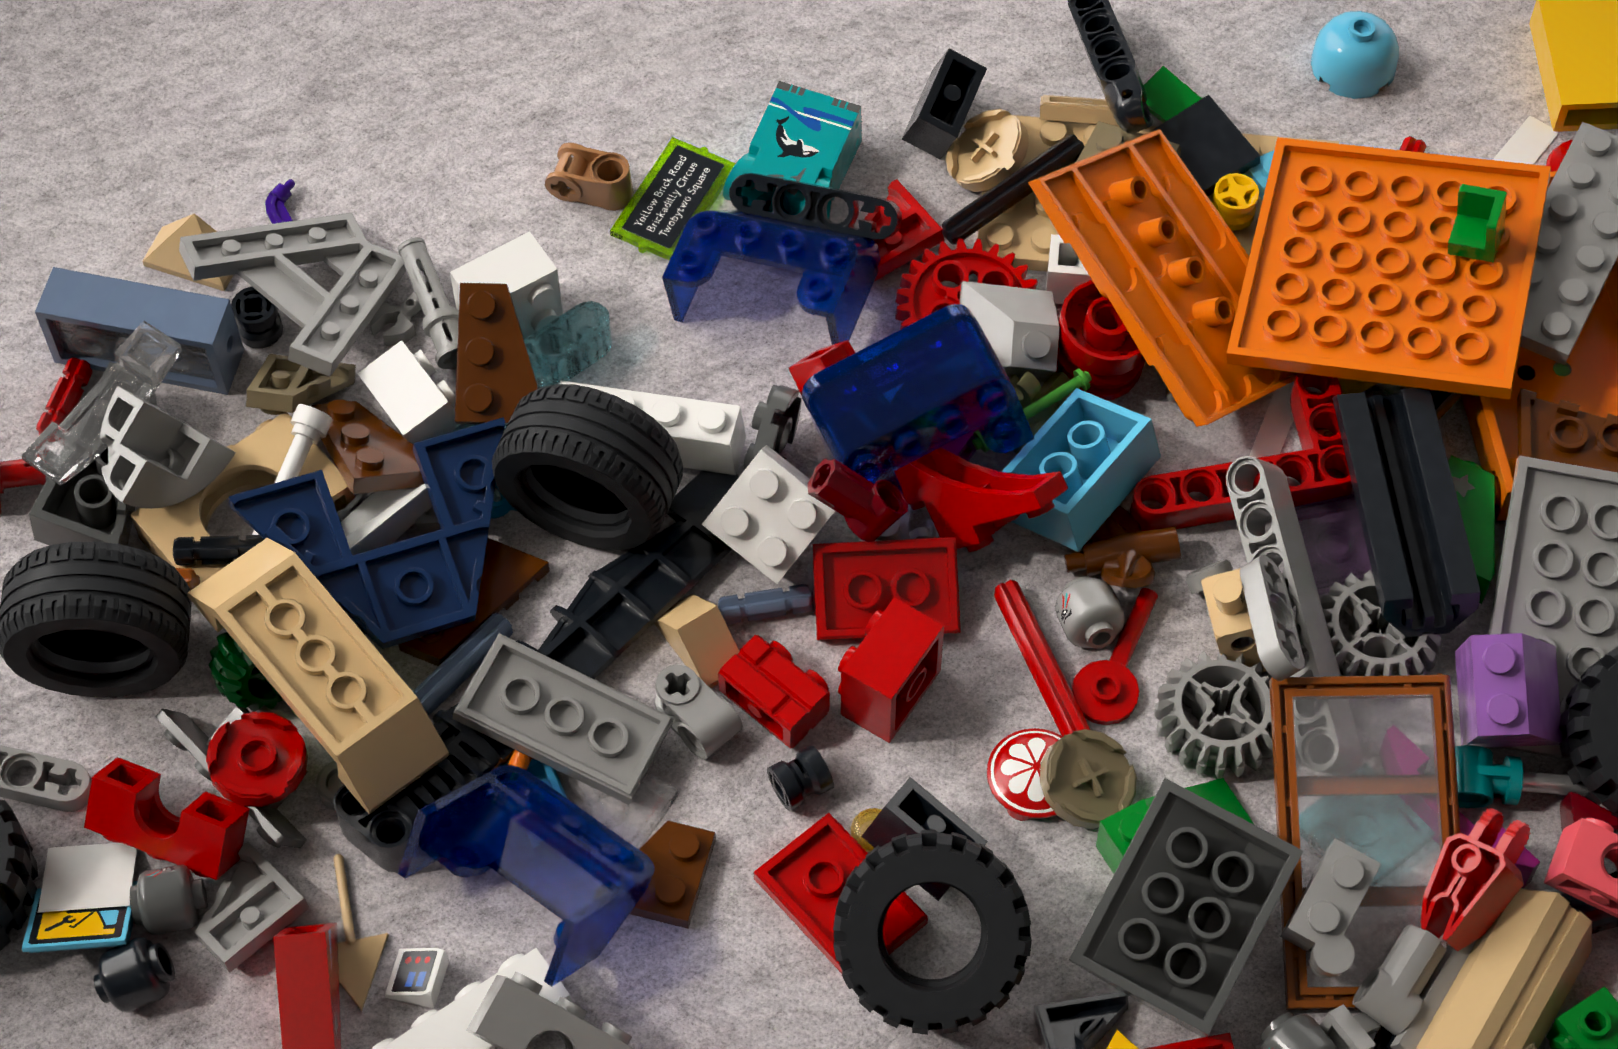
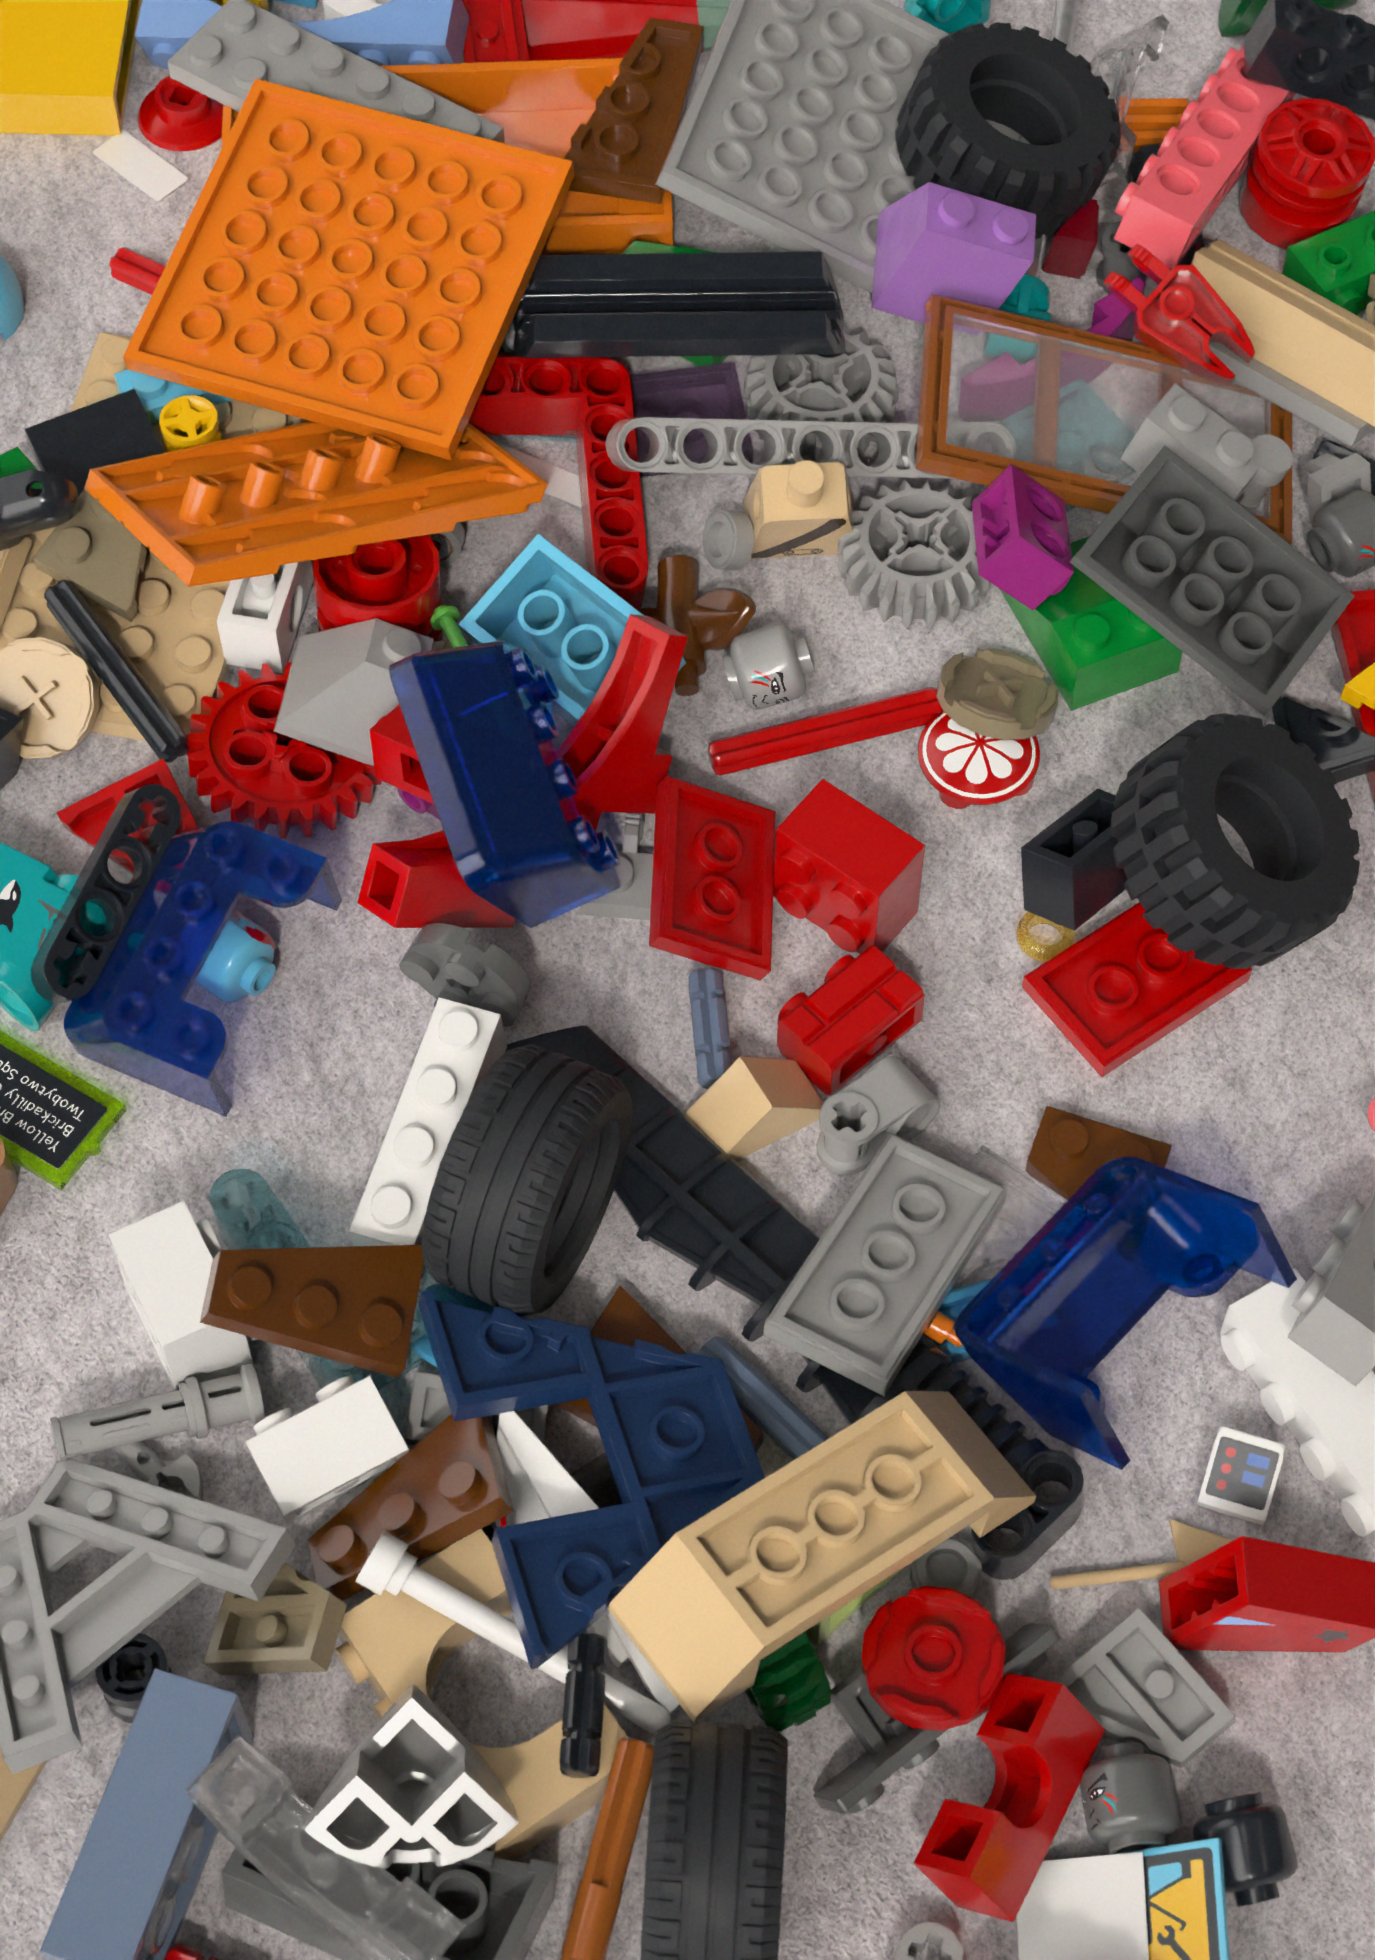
camera: 85 degrees left, 0 degrees up
(769, 514) = (609, 979): white brick -> none
(780, 299) = (239, 961): none -> medium azure head
(800, 777) = (978, 1000): black wheel -> none
(865, 505) = (628, 852): dark red piece -> none
(1107, 688) = (856, 669): red piece -> none
(1222, 762) = (1022, 538): none -> magenta brick
(1271, 618) = (848, 439): light grey beam -> none
(1394, 988) = (1273, 410): light grey piece -> none
(1478, 223) = (340, 145): green panel -> none

